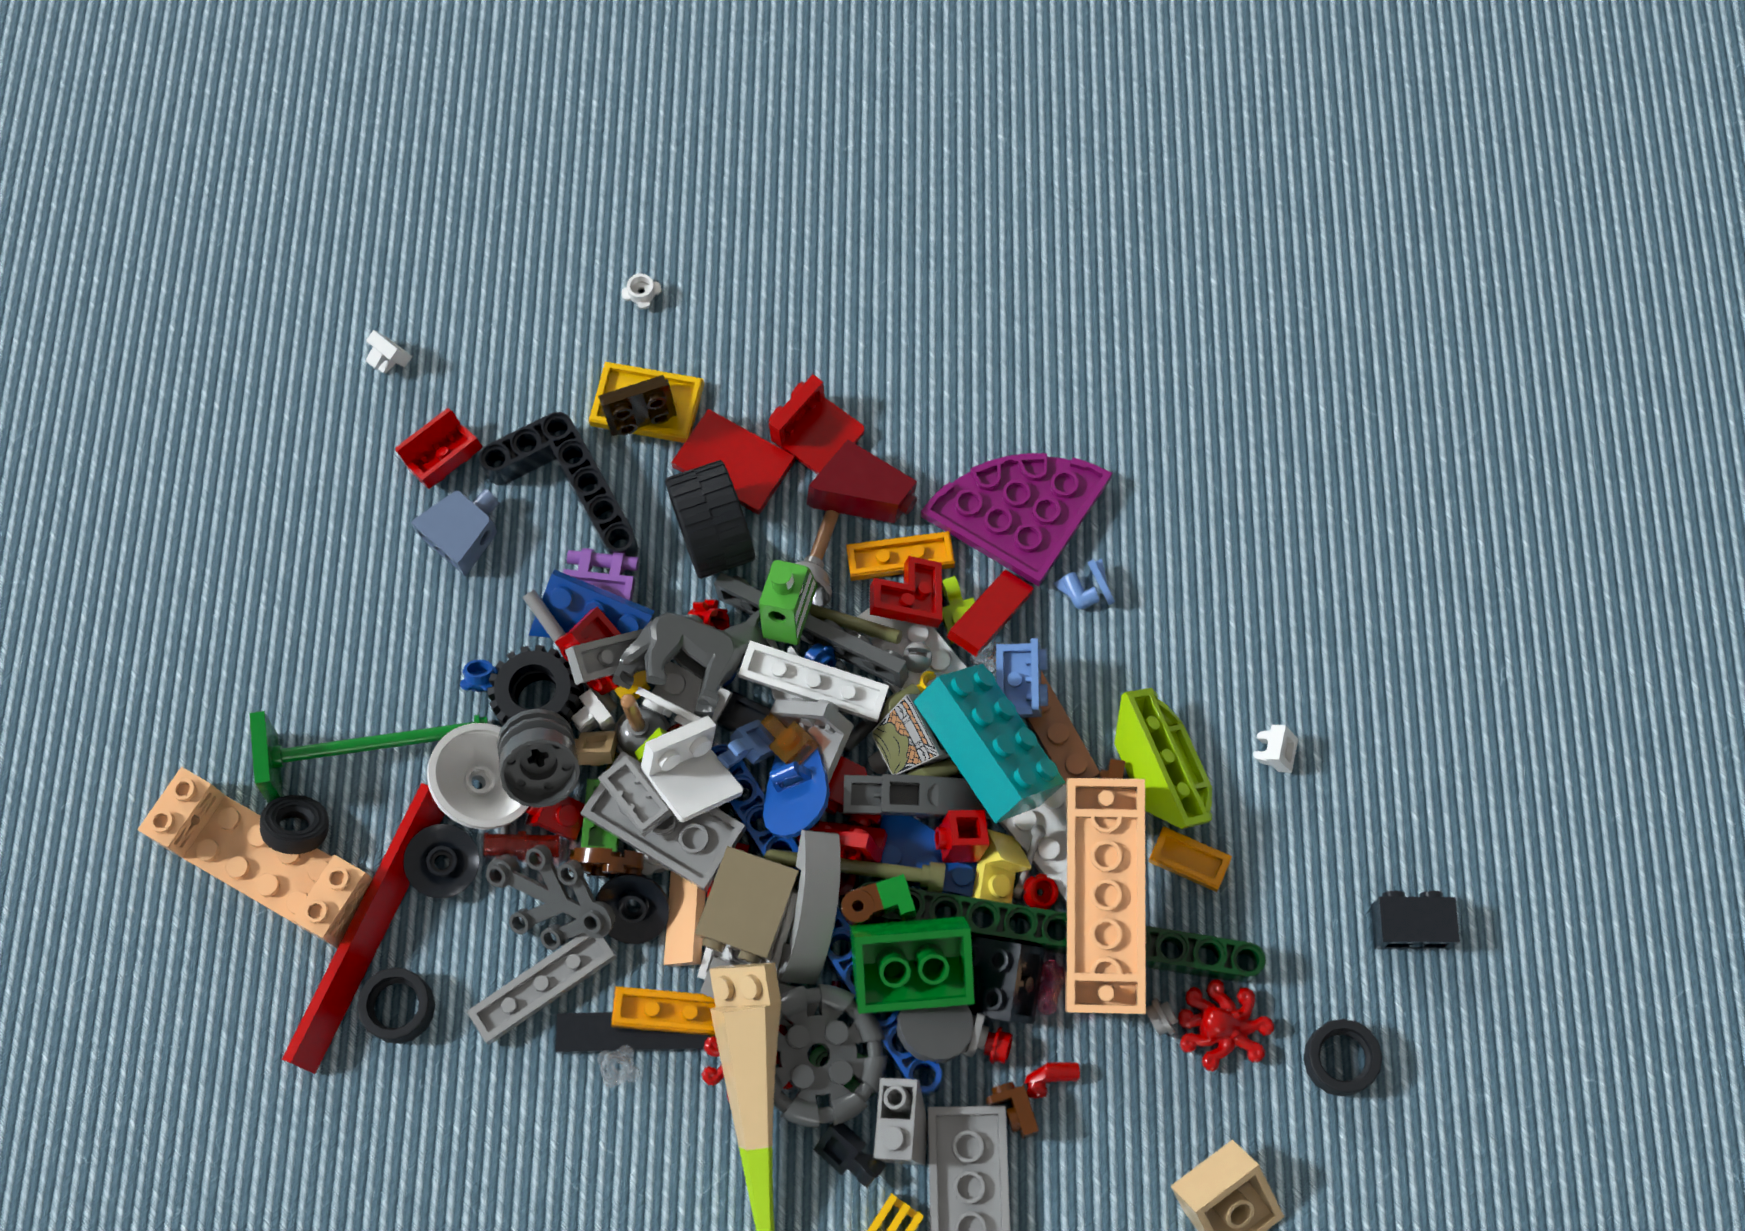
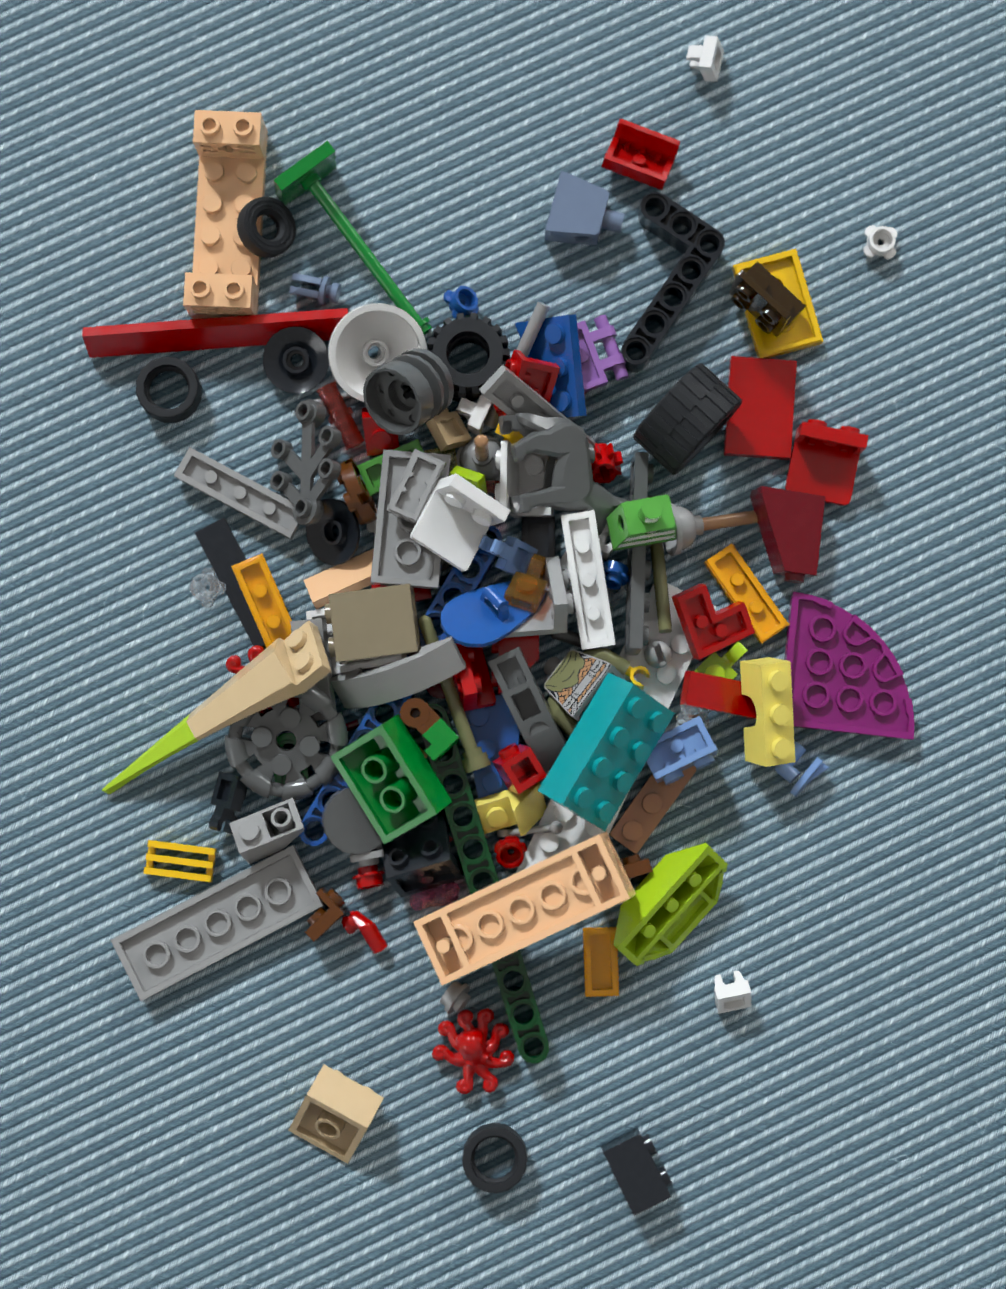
camera: 60 degrees right, 15 degrees up
(377, 806) = (325, 292): none -> sand blue arm
(1003, 567) = (770, 688): none -> light yellow arch

